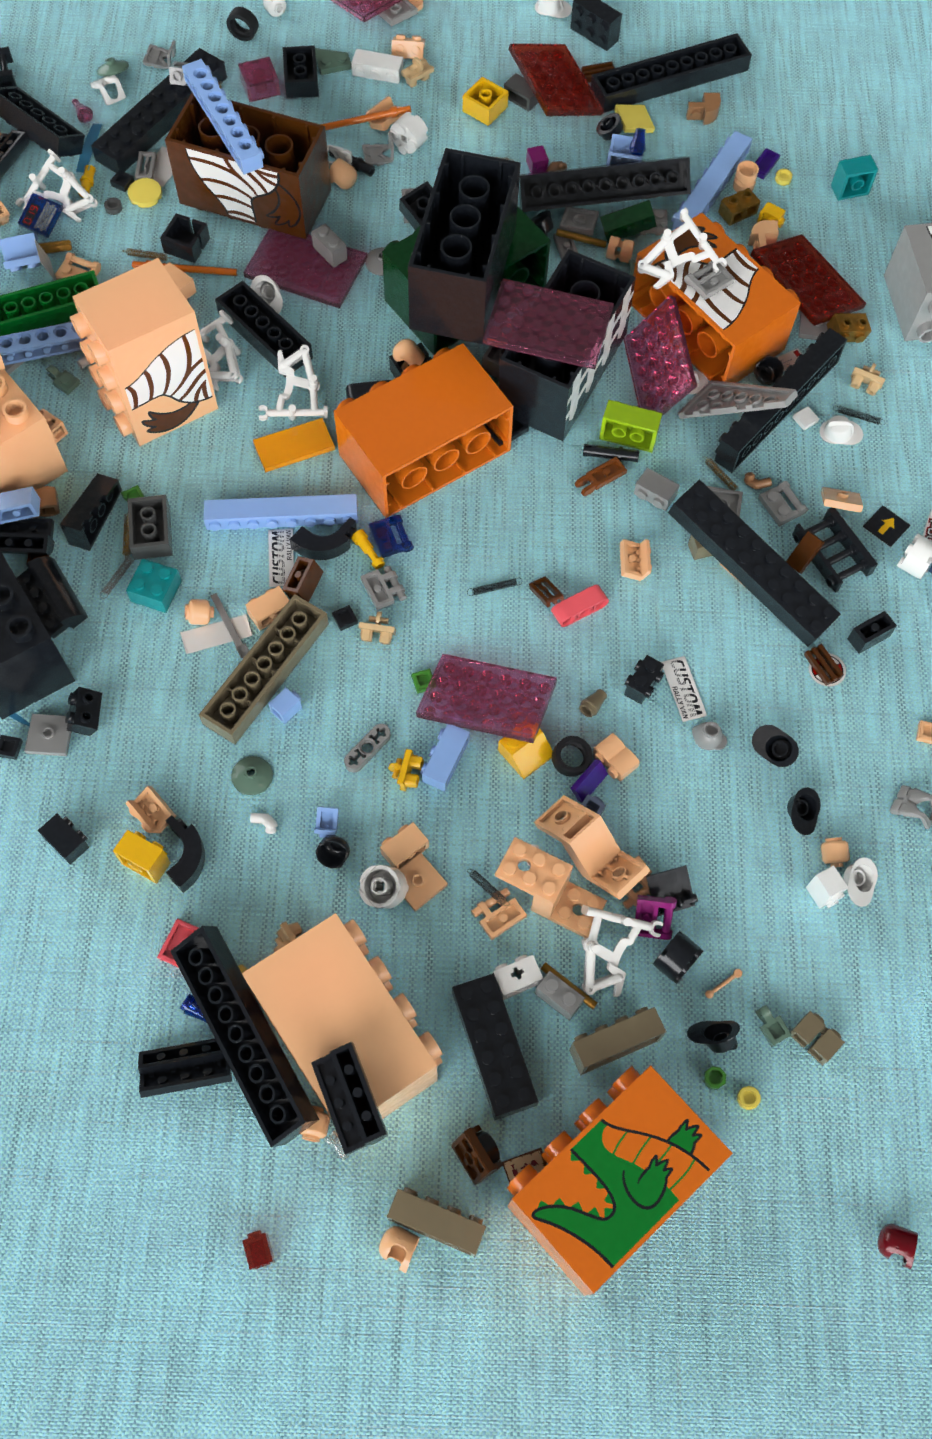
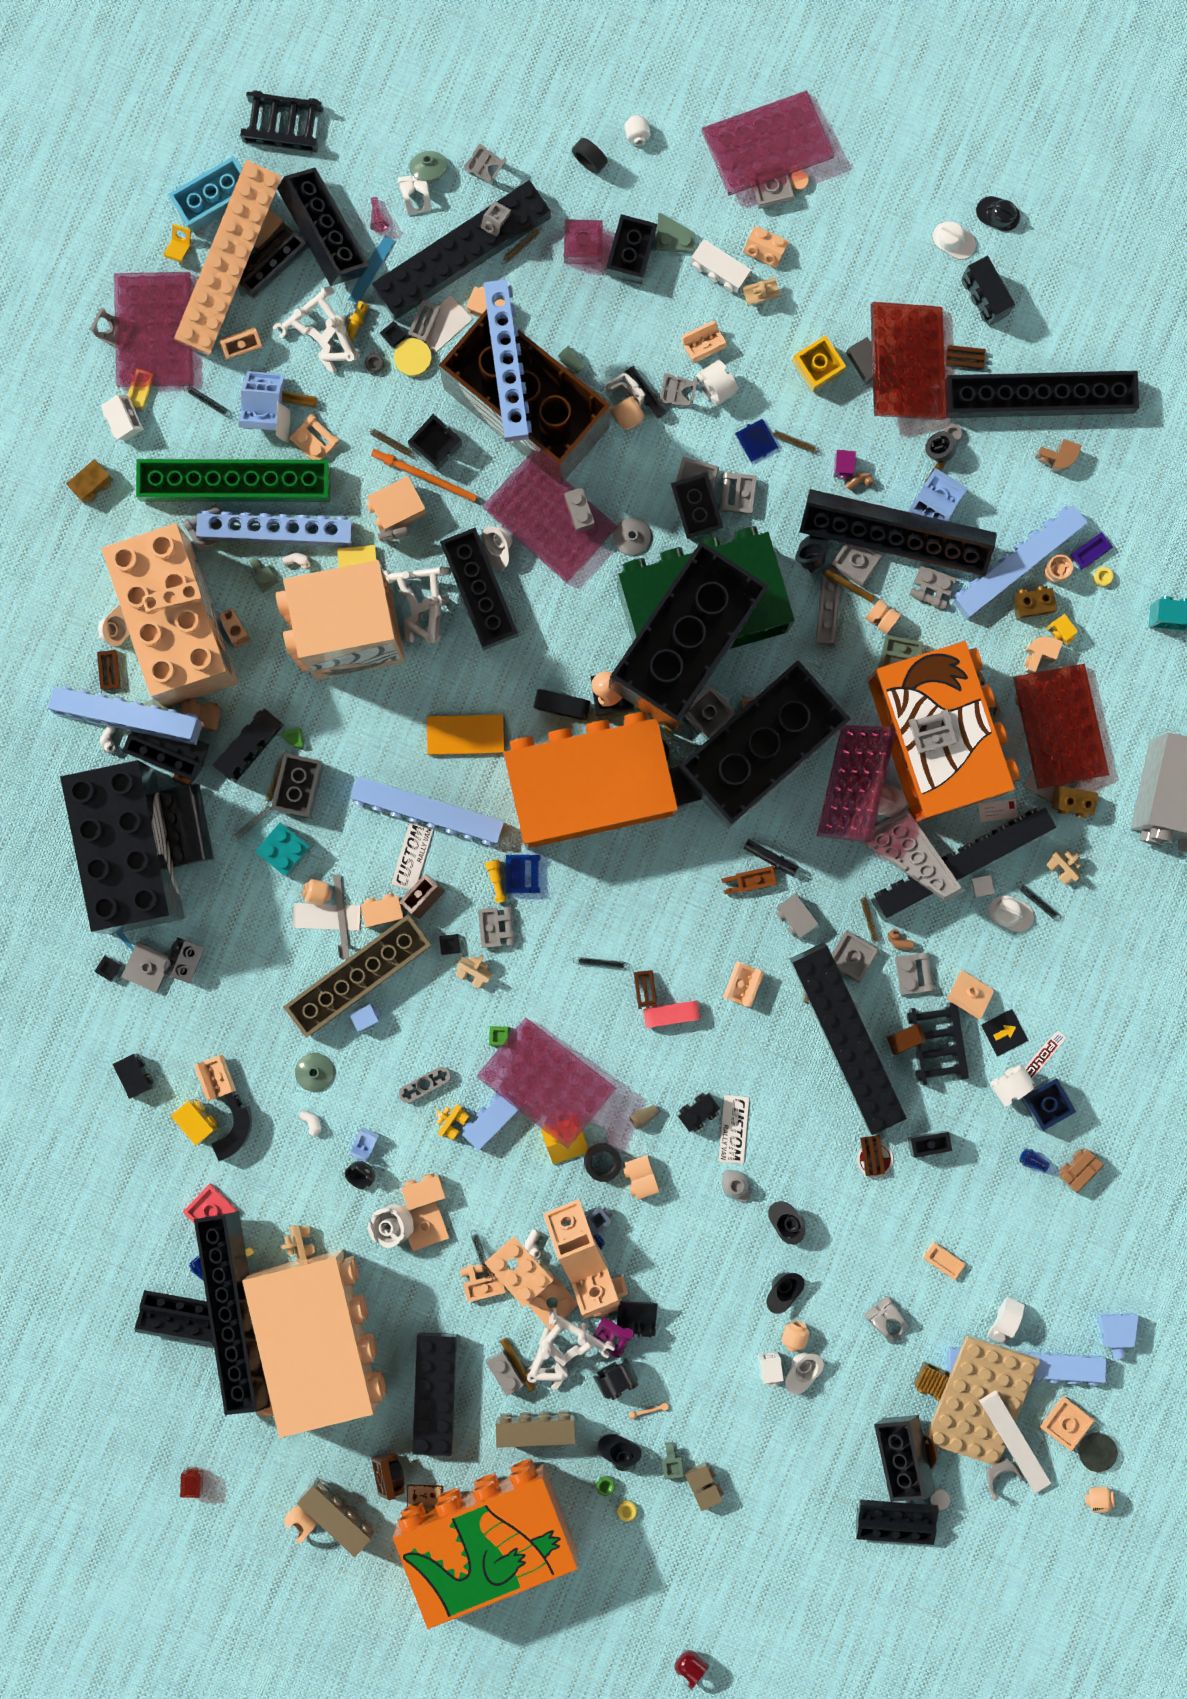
camera: 15 degrees right, 20 degrees up
(40, 215) = (294, 354): clear blue tile -> none
(310, 383) = (503, 679): white piece -> none
(323, 547) = (444, 860): black arch -> none
(349, 1099) = (293, 1418): black brick -> none
(393, 112) = (710, 350): orange bar -> none
(523, 965) = (466, 1348): white brick -> none
(548, 323) = (741, 744): clear pink plate -> none
(589, 780) = (608, 1190): dark purple tile -> none
(629, 221) = (905, 587): dark green brick -> none
(630, 426) = (800, 839): lime brick -> none
(634, 117) = (974, 441): light yellow tile -> none
(638, 142) = (954, 496): clear blue cone -> none
(666, 244) = (904, 701): white piece -> none
(768, 370) = (968, 821): black hair -> none

